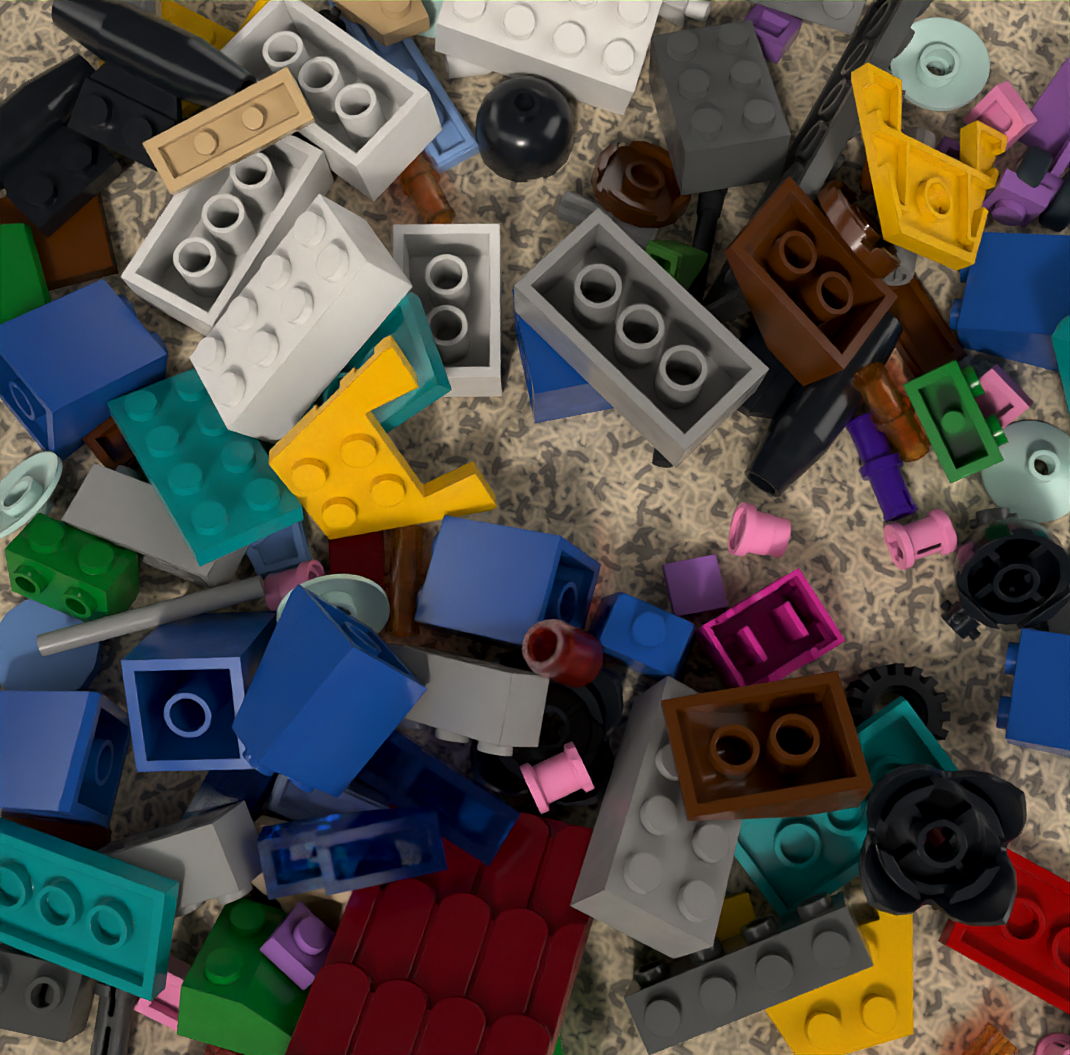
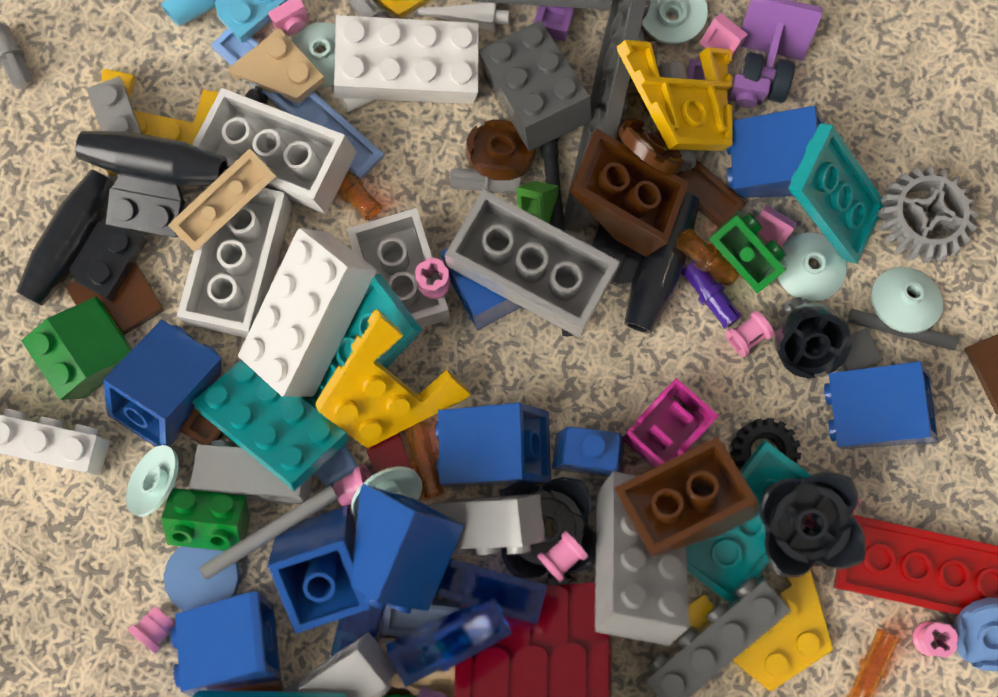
camera: 15 degrees left, 0 degrees up
(484, 309) = (425, 270): none -> bright pink bush
(524, 129) = (410, 134): black cylinder -> none
(562, 652) = (543, 476): clear red brick -> none
(694, 586) = (613, 407): medium lavender tile -> none
(757, 532) = (644, 360): bright pink piece -> none
(959, 620) = (789, 379): black piece -> none

